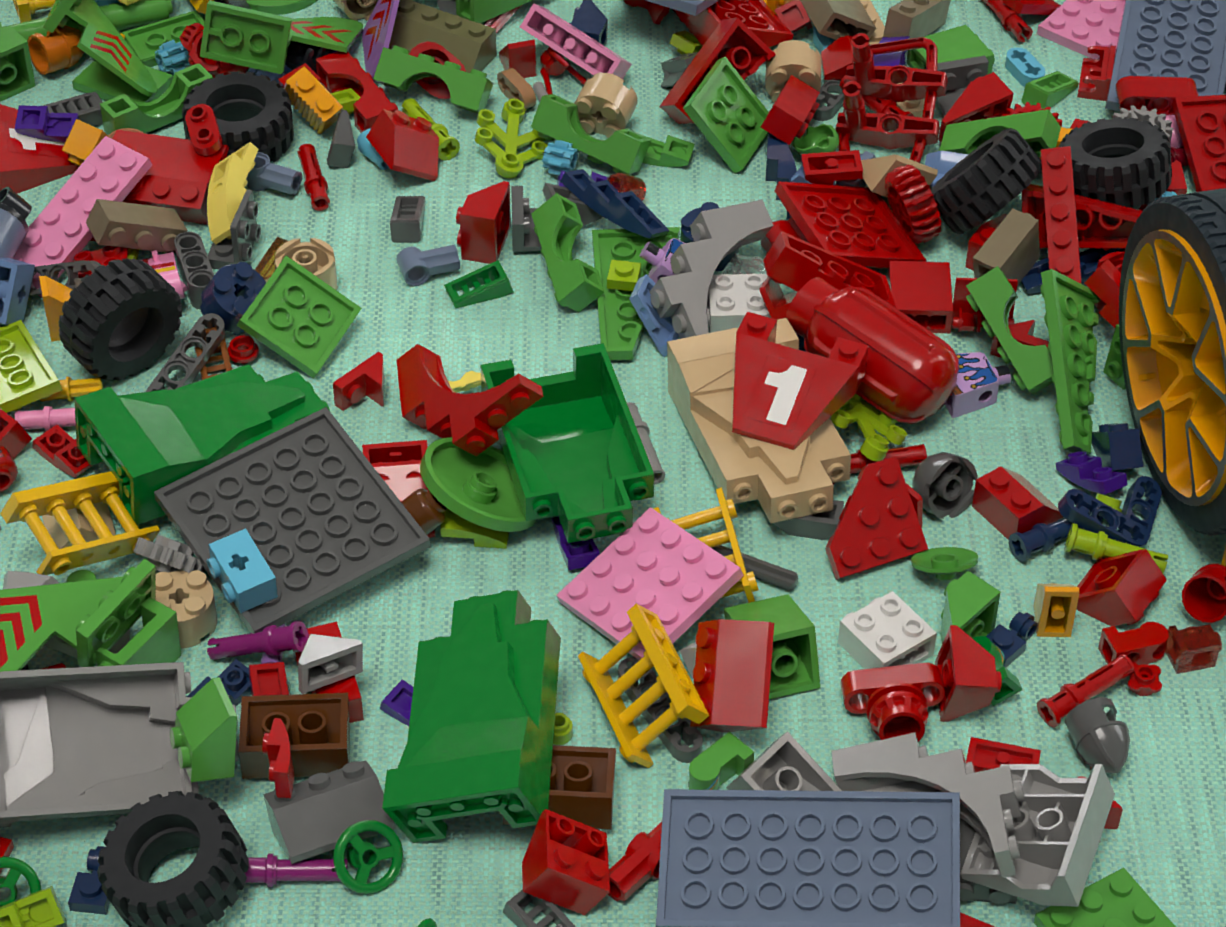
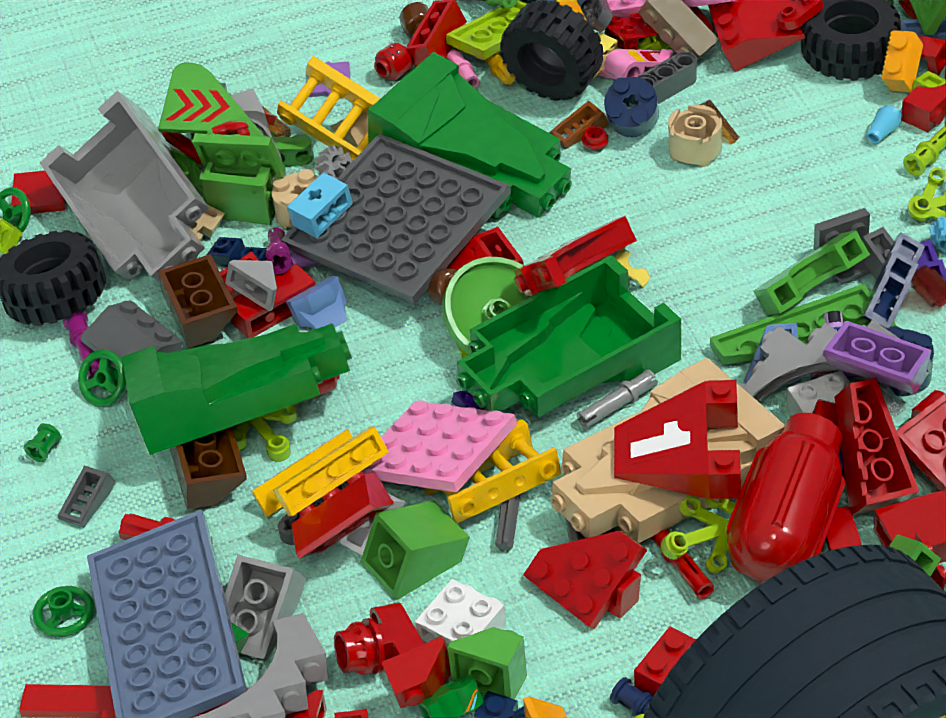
camera: 75 degrees right, 0 degrees up
(80, 598) = (232, 127): none -> red arm
(189, 365) = (553, 108): dark grey beam -> none
(206, 734) = (149, 244): bright green slope -> none
(227, 190) = (740, 58): light yellow slope -> none
(243, 235) = (715, 81): dark grey bracket -> none
(273, 176) = (805, 77): sand blue piece -> none
(278, 749) = (143, 290): red slope -> none
(299, 316) = (631, 146): bright green plate -> none
(315, 183) = (815, 106): red pin -> none
(342, 142) = (868, 101): dark grey slope -> none
(357, 626) = (319, 305): none -> medium blue slope
(362, 381) = (590, 211): red slope -> none
(406, 144) = (884, 134): red slope -> none
(407, 219) = (812, 173): dark grey slope -> none
(420, 265) = (754, 197): sand blue piece -> none
(484, 223) = (811, 204): red slope -> none
(495, 286) = (757, 244): green slope -> none
(566, 863) = (125, 481): red slope -> none
(623, 275) = (808, 318): lime plate -> none
(719, 763) = (271, 548): bright green leg -> none
(758, 220) = (878, 357): none -> medium lavender slope
(944, 561) = (571, 638): bright green dish -> none
(945, 484) = (662, 605): dark grey cylinder -> none

